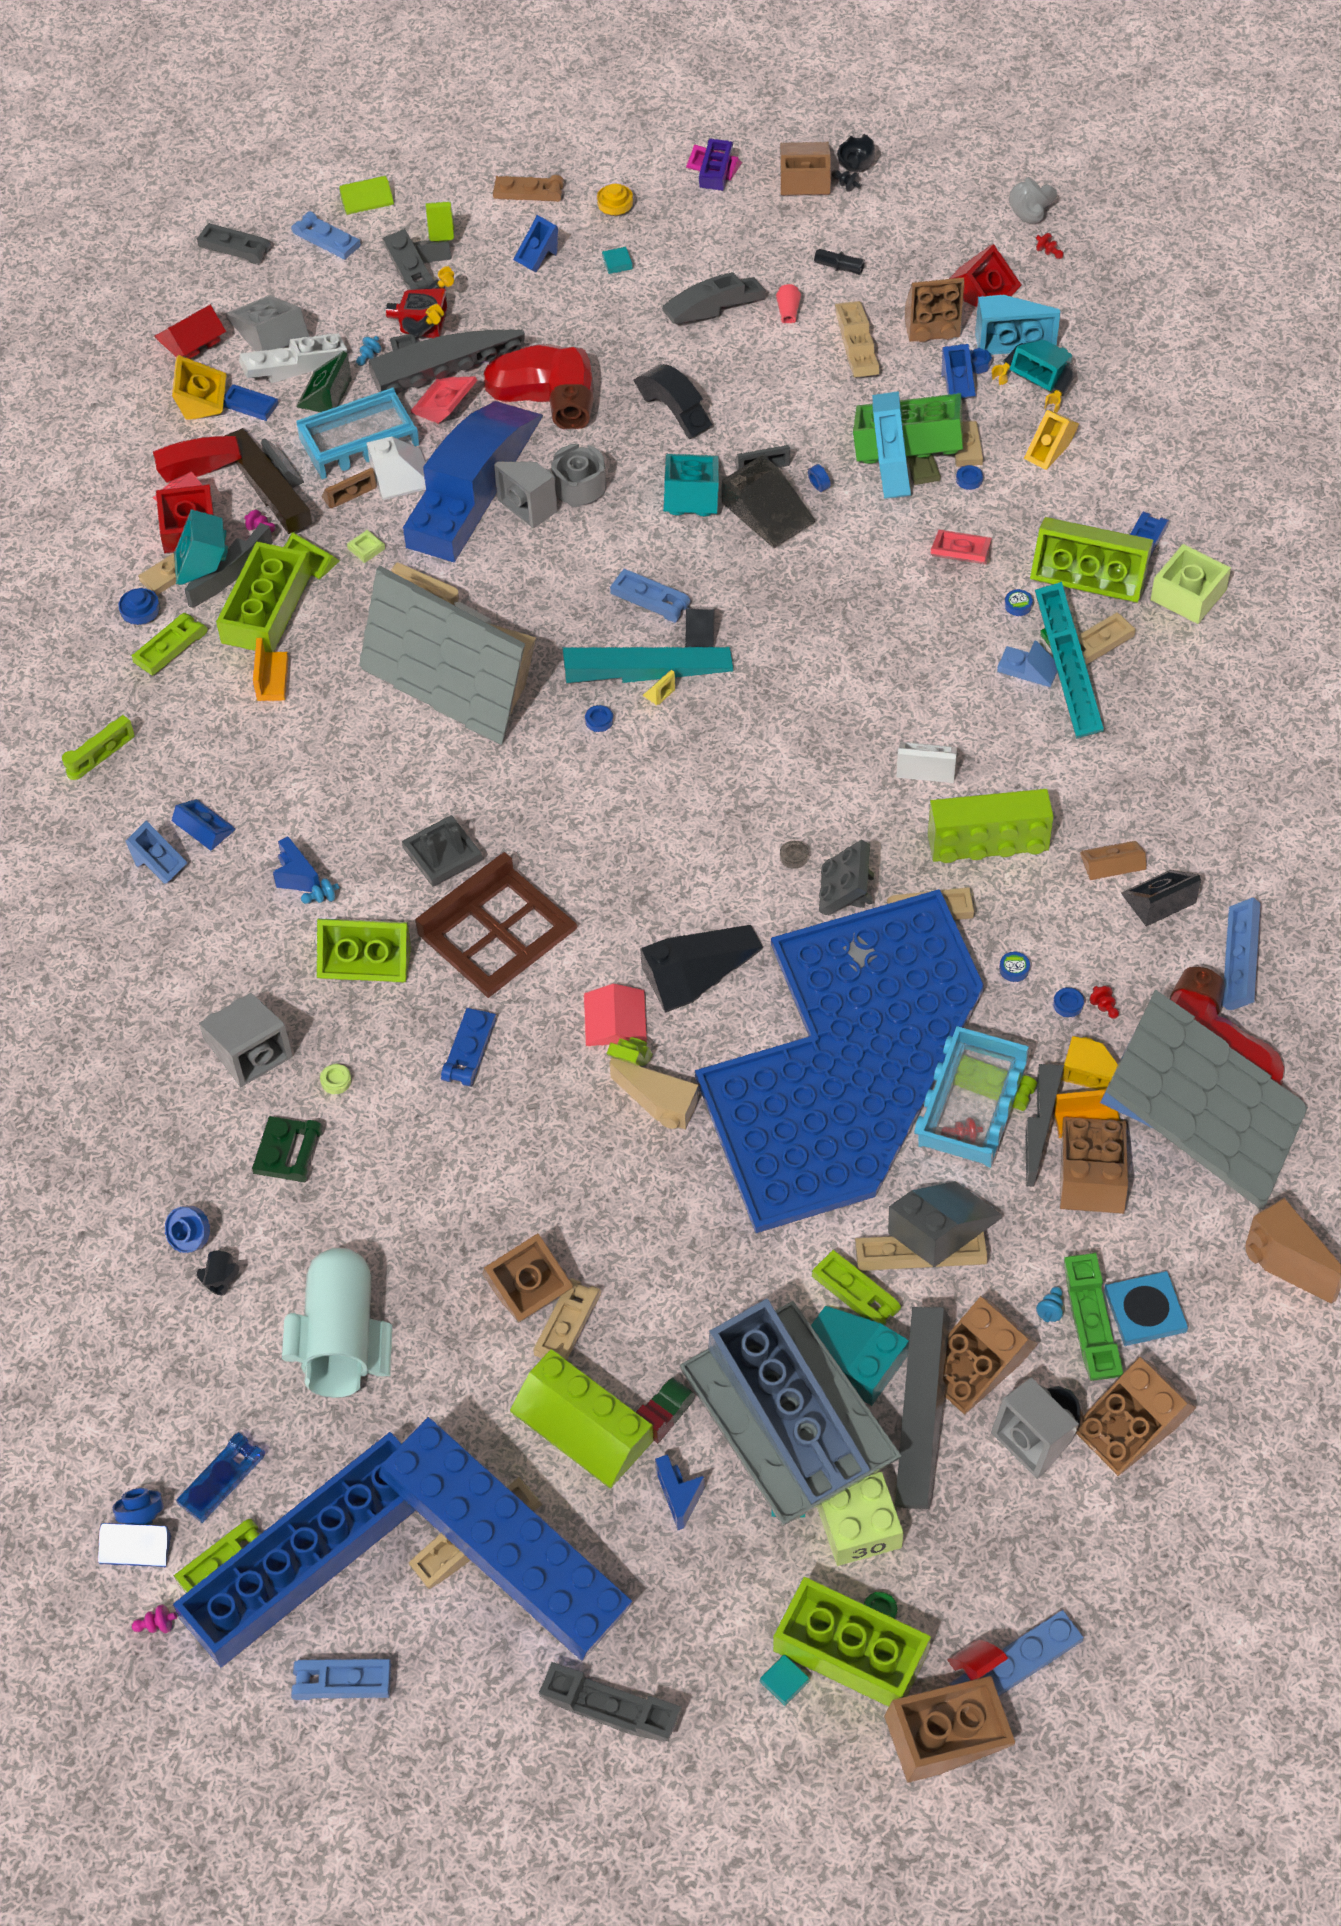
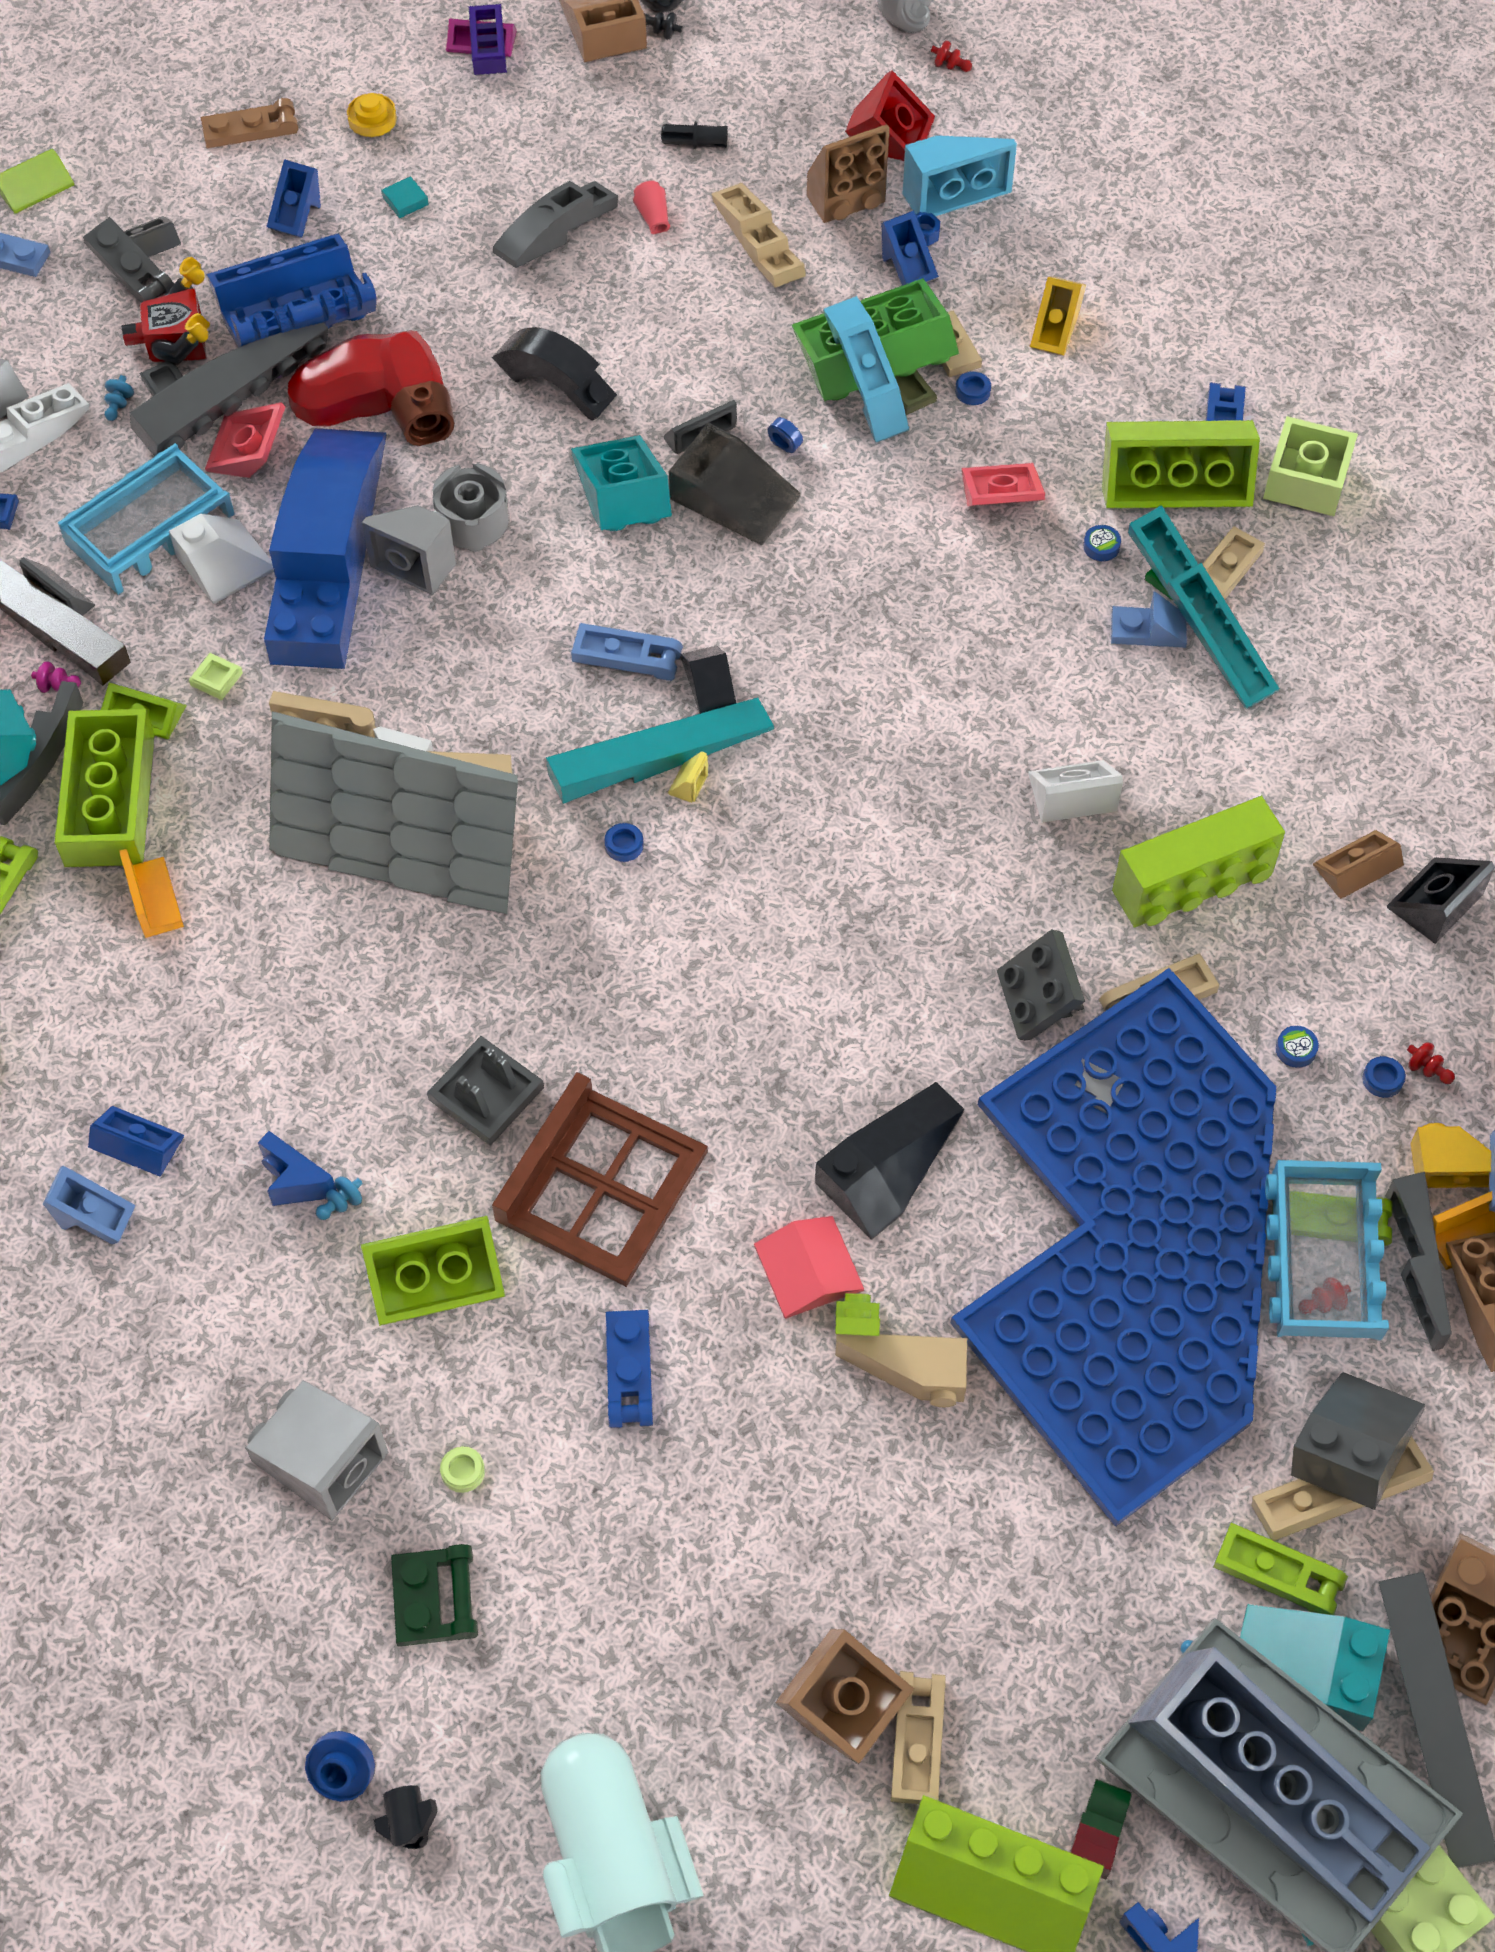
camera: 20 degrees left, 5 degrees up
(327, 385) = (77, 460): dark green slope -> none
(350, 488) = (164, 600): medium nougat slope -> none
(440, 221) = (152, 196): lime slope -> none
(511, 304) = (292, 291): none -> blue slope
(794, 854) = (954, 966): clear smoke tile -> none
(1041, 364) = (1010, 217): teal torso -> none

